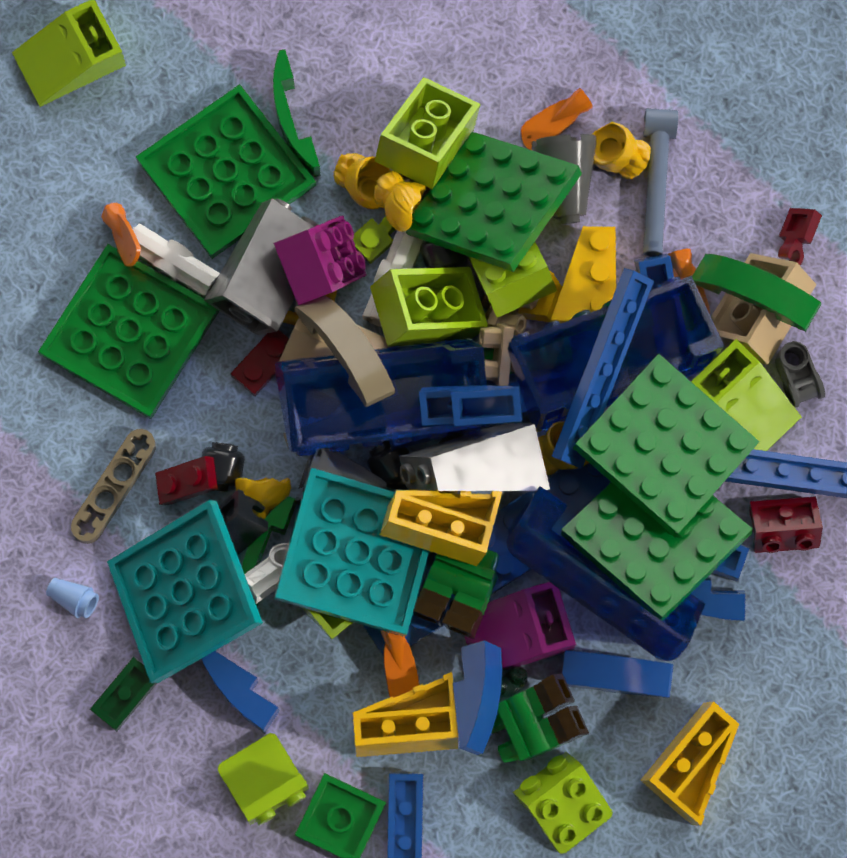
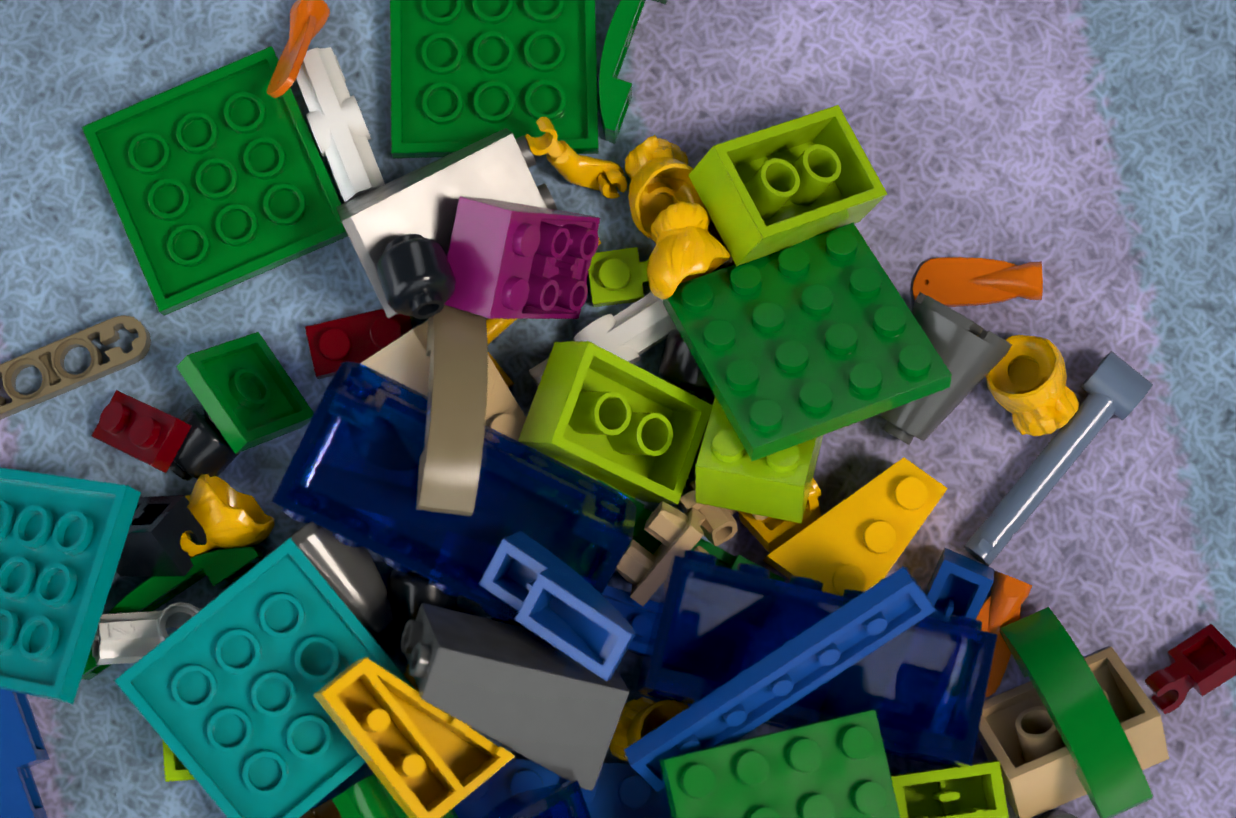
camera: 40 degrees right, 5 degrees up
(226, 423) = (245, 391): none -> green plate
(280, 296) = (415, 276): none -> black head
(312, 199) = (575, 168): none -> yellow arm

